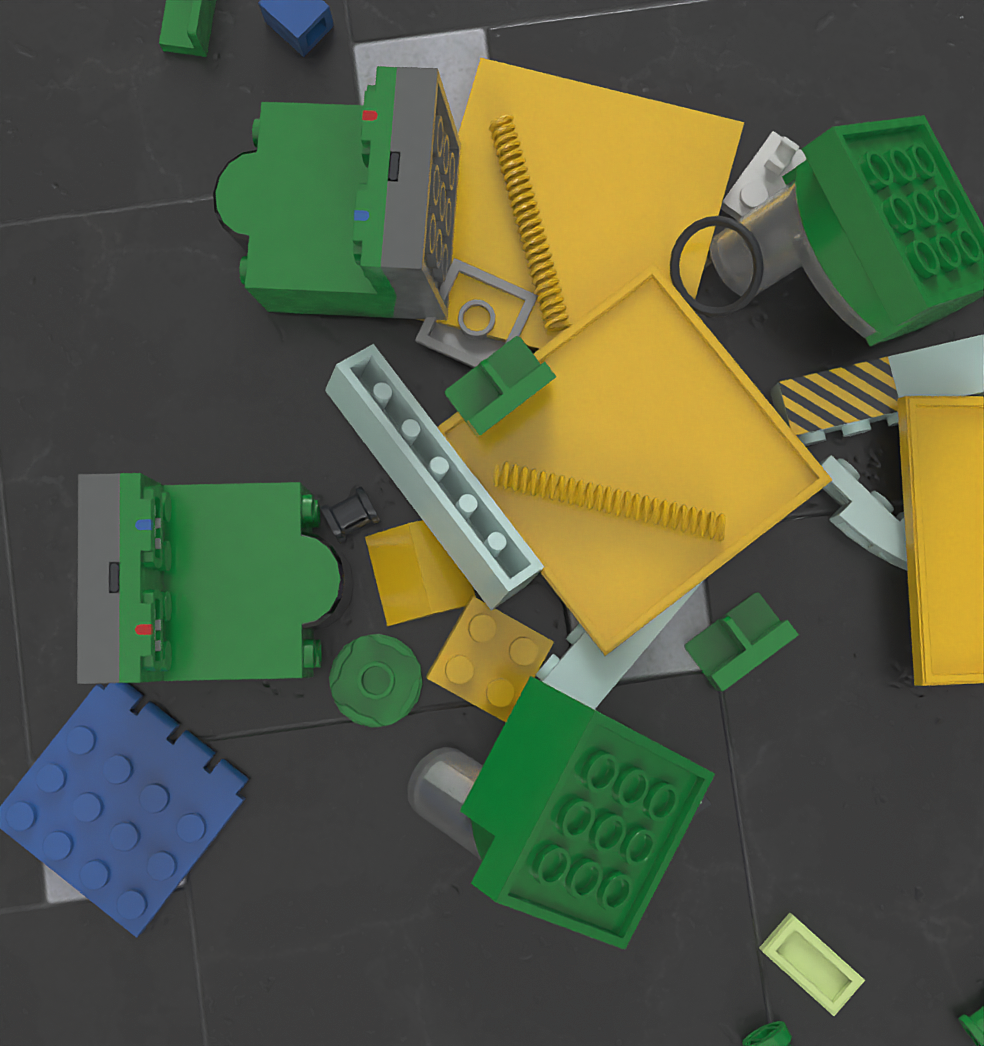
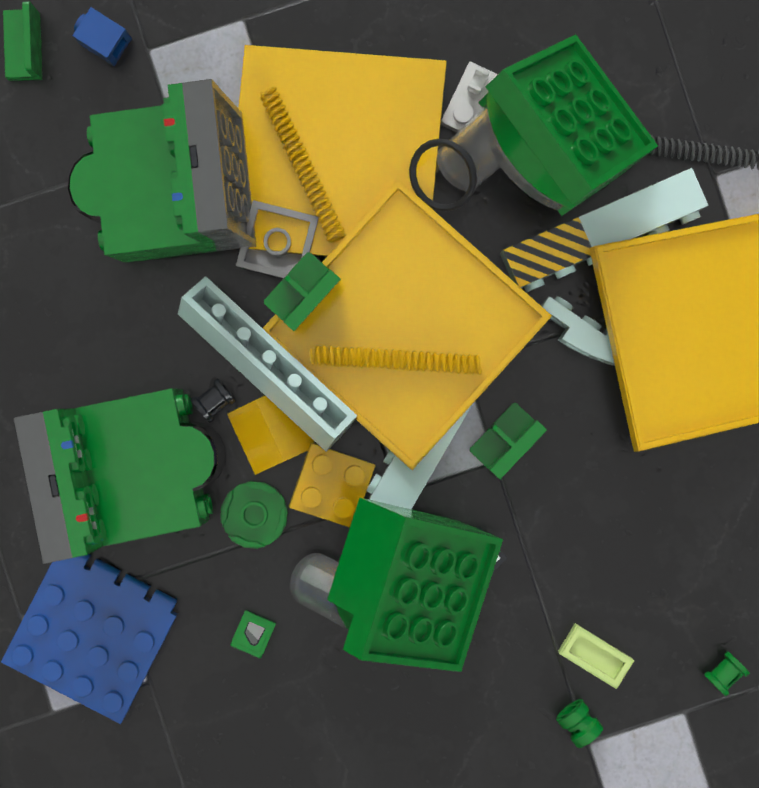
camera: 10 degrees left, 5 degrees up
(343, 845) = (253, 634): none -> green slope

